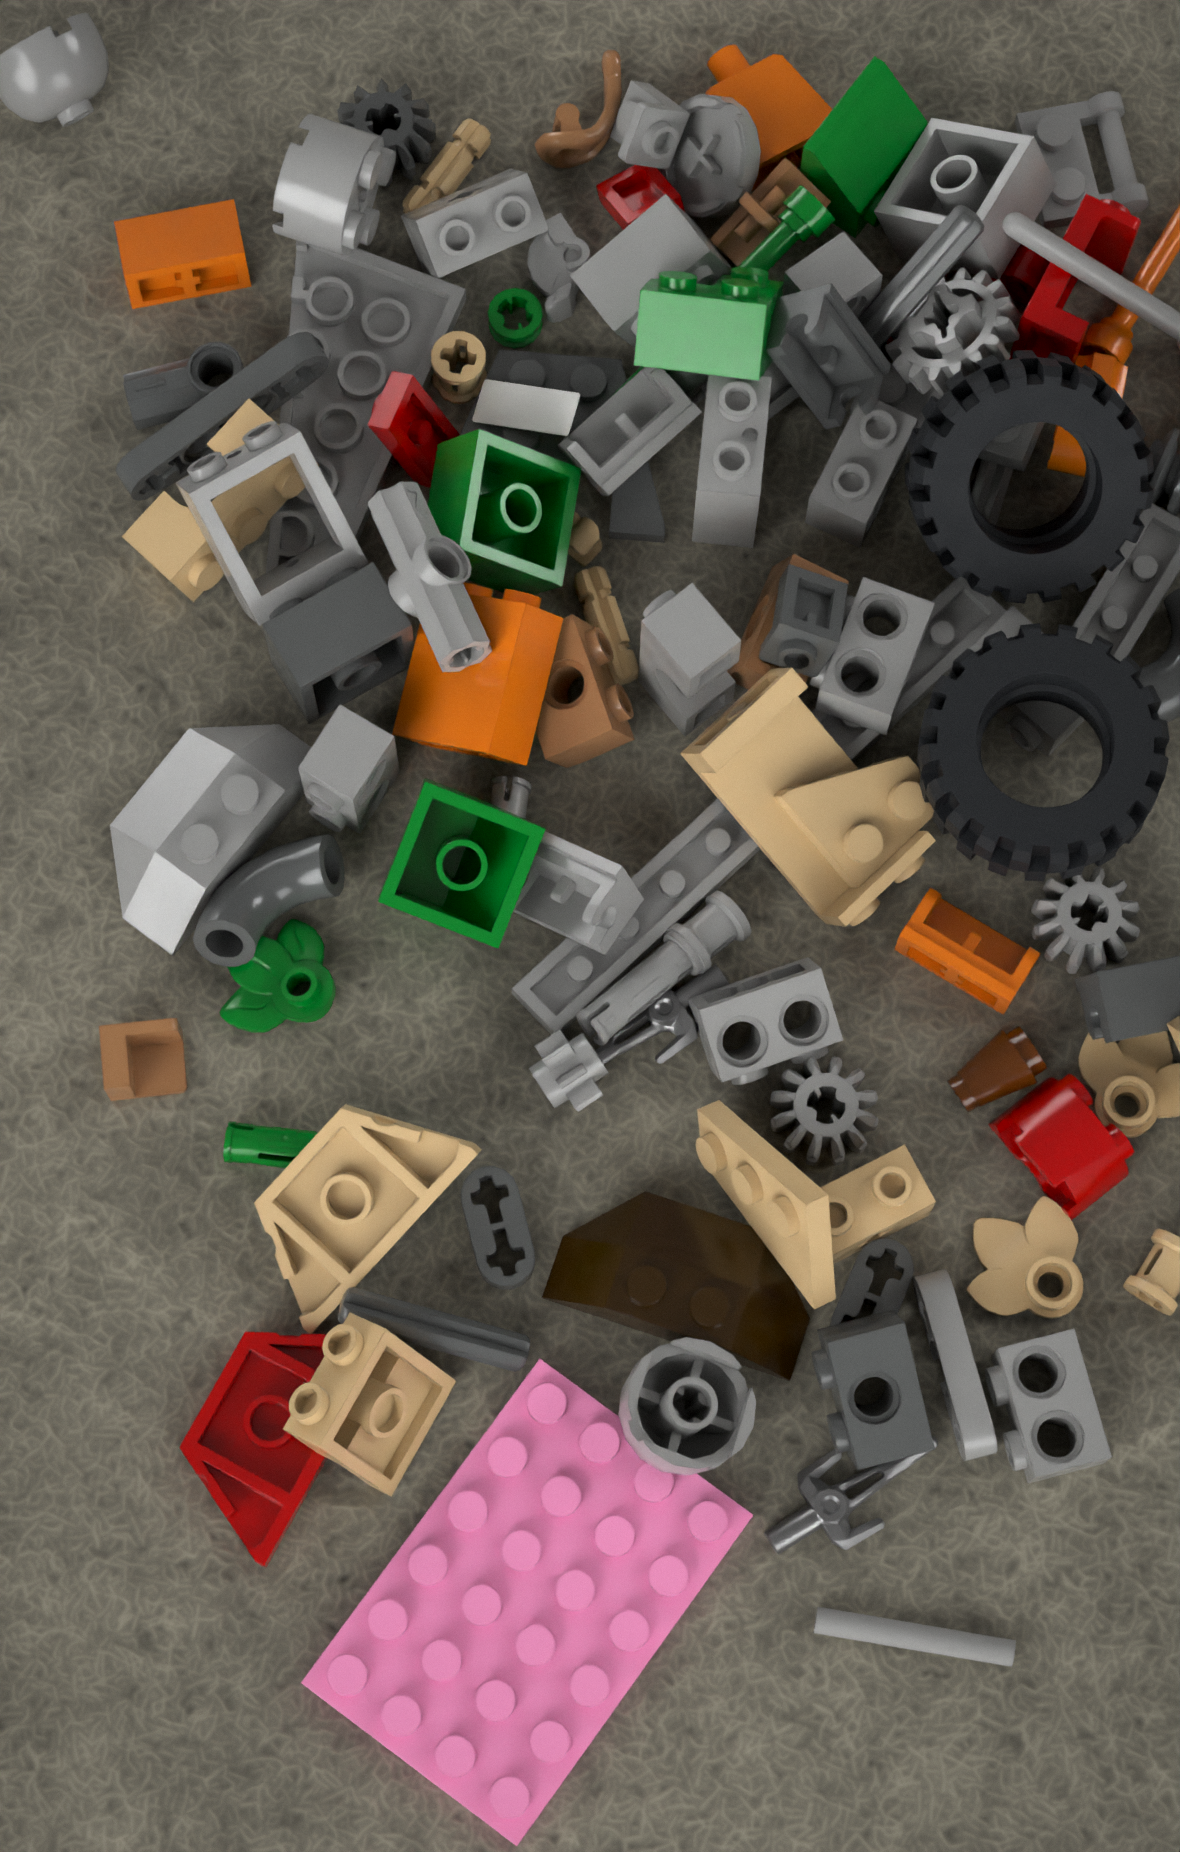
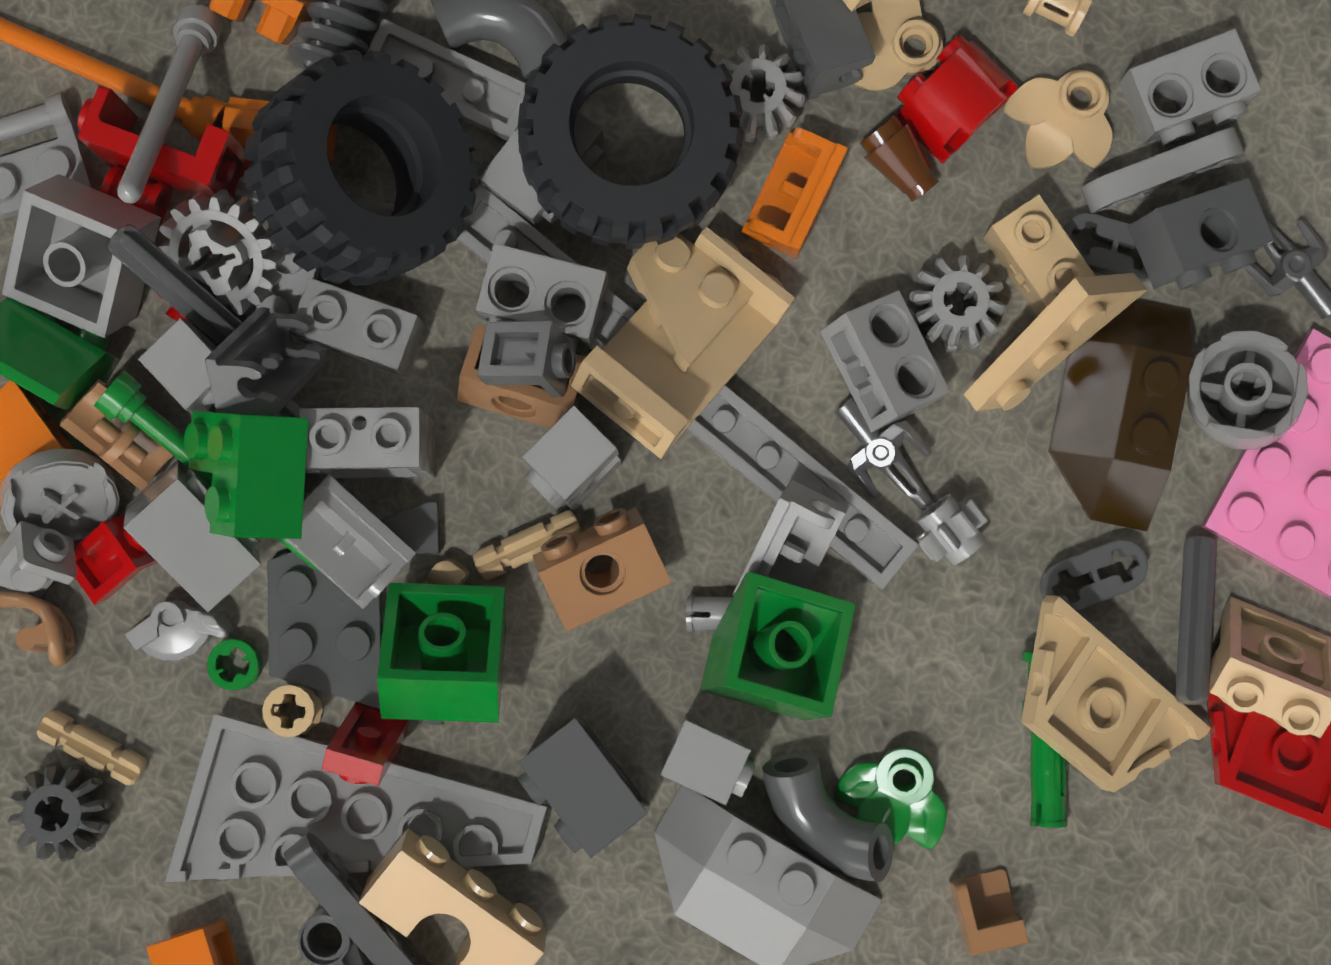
camera: 90 degrees left, 10 degrees up
(304, 573) = (526, 834): light grey window -> none
(332, 186) = (132, 854): light grey brick -> none
(429, 576) = (527, 707): light grey piece -> none
(475, 222) = (148, 712): light grey brick -> none
(491, 704) = (602, 652): orange brick -> none
(526, 407) = (329, 641): white sticker -> none
(684, 952) = (829, 438): light grey pin -> none

